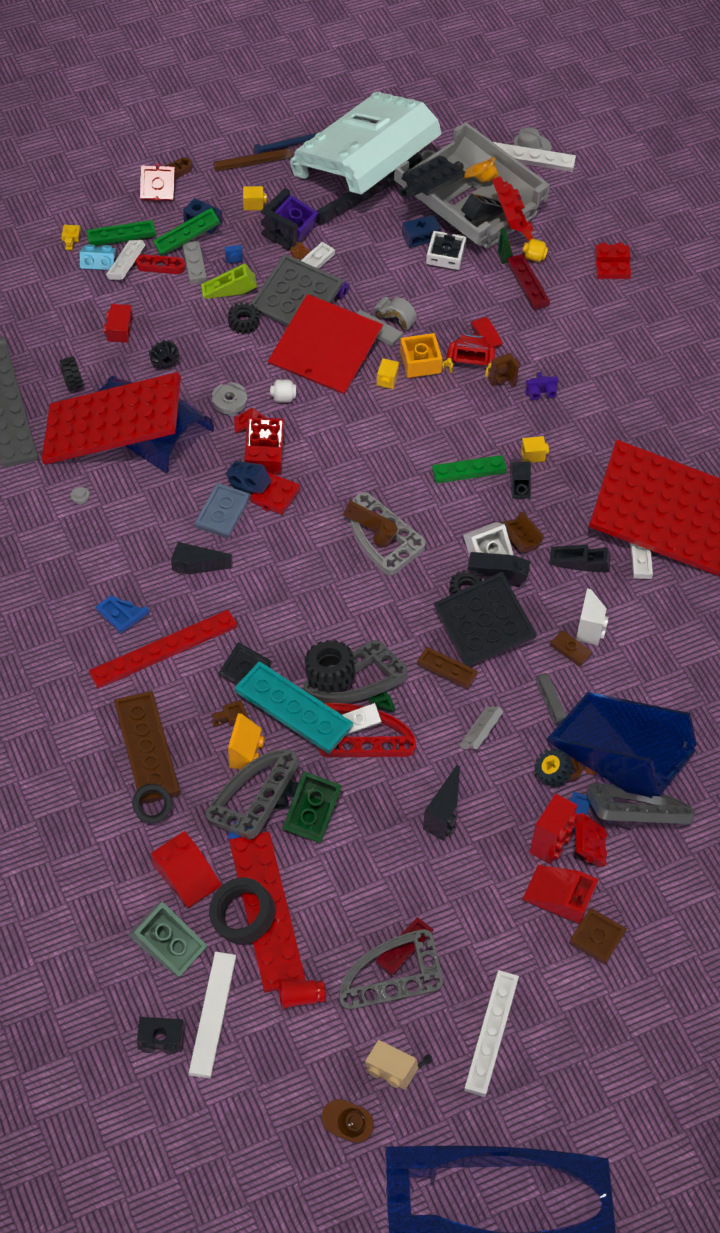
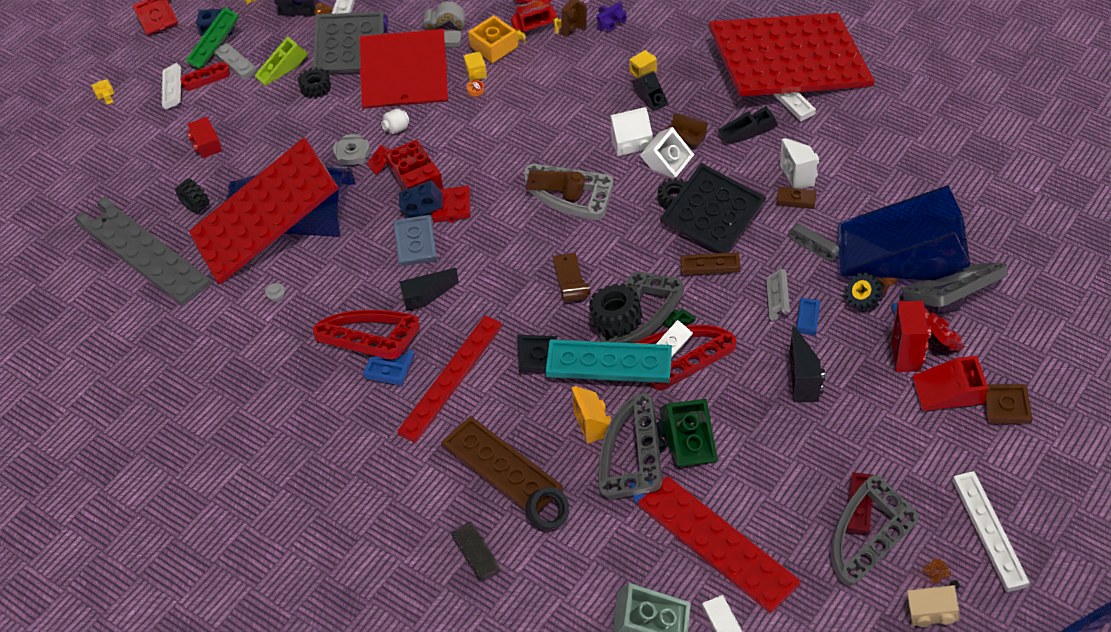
camera: 25 degrees left, 5 degrees down
(74, 805) = (475, 551): none -> clear smoke beam
(97, 257) = (143, 97): medium azure bracket -> none
(121, 233) = (150, 68): green plate -> none
(158, 585) = (388, 348): none -> red beam
(164, 354) = (266, 141): black gear -> none
(185, 869) = (620, 549): red slope -> none
(226, 894) = (683, 533): black tyre -> none
(229, 713) = (557, 396): reddish brown plate -> none
(233, 254) = (266, 38): blue plate -> none
(300, 992) = (805, 593): red plant -> none
(321, 616) = (570, 278): none -> reddish brown door
(374, 394) = (475, 88): none -> orange tile
(422, 1033) = (940, 565): none -> clear orange plate
(469, 469) = (600, 106): green plate -> none
(470, 508) = (630, 131): none -> white slope
(490, 564) = (687, 162): black slope -> none
(493, 761) = (808, 316): none -> blue tile

